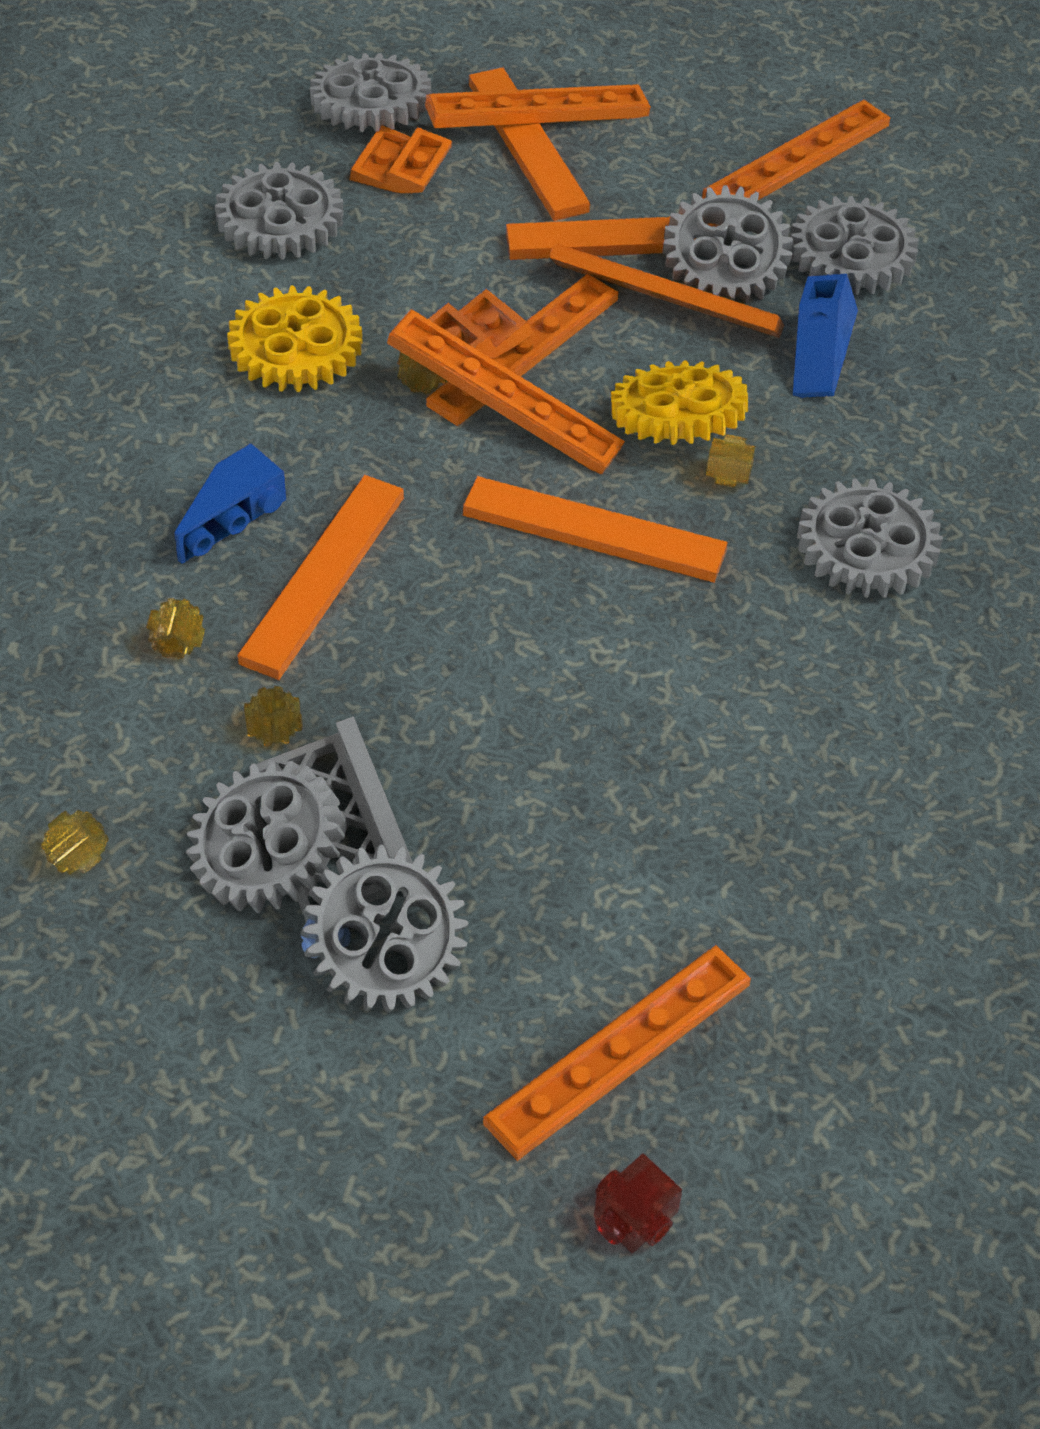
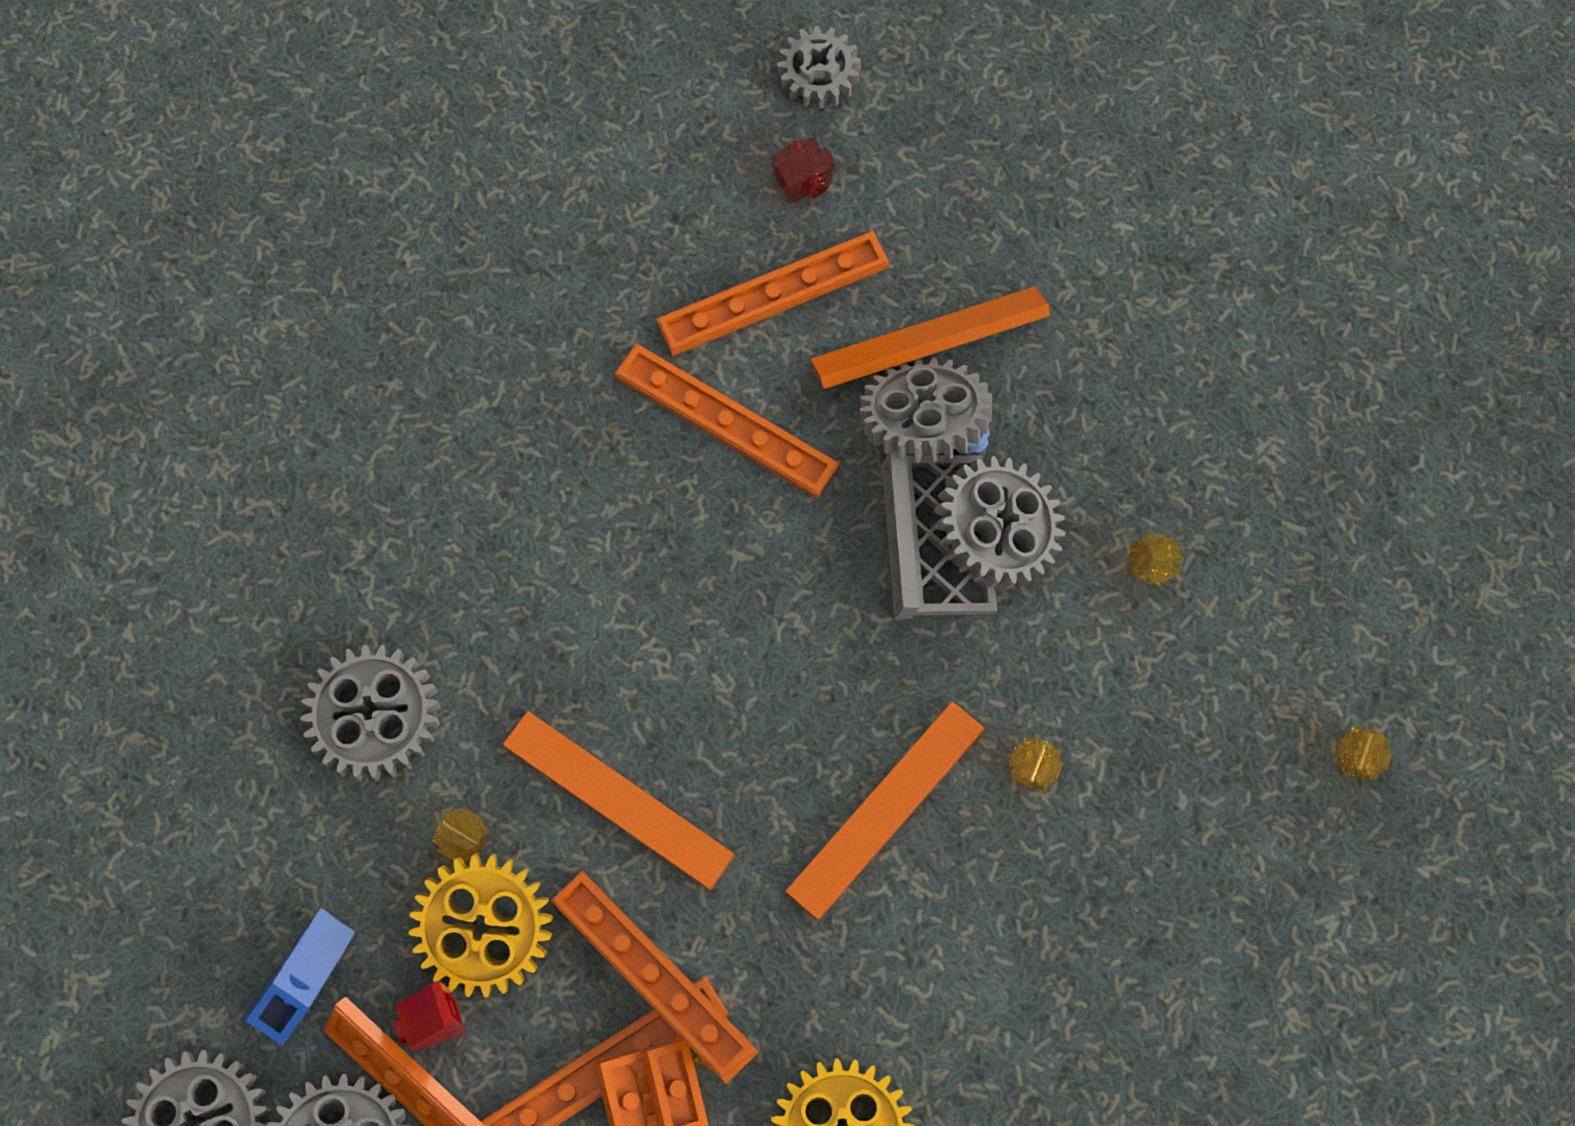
camera: 160 degrees left, 20 degrees up
(231, 498) = (947, 921): blue slope -> none
(273, 716) = (960, 639): clear yellow gear -> none
(399, 1035) = (930, 337): none -> orange tile
(623, 891) = (727, 420): none -> orange tile
(687, 1374) = (819, 67): none -> light grey gear
(689, 331) = (428, 1018): none -> red slope

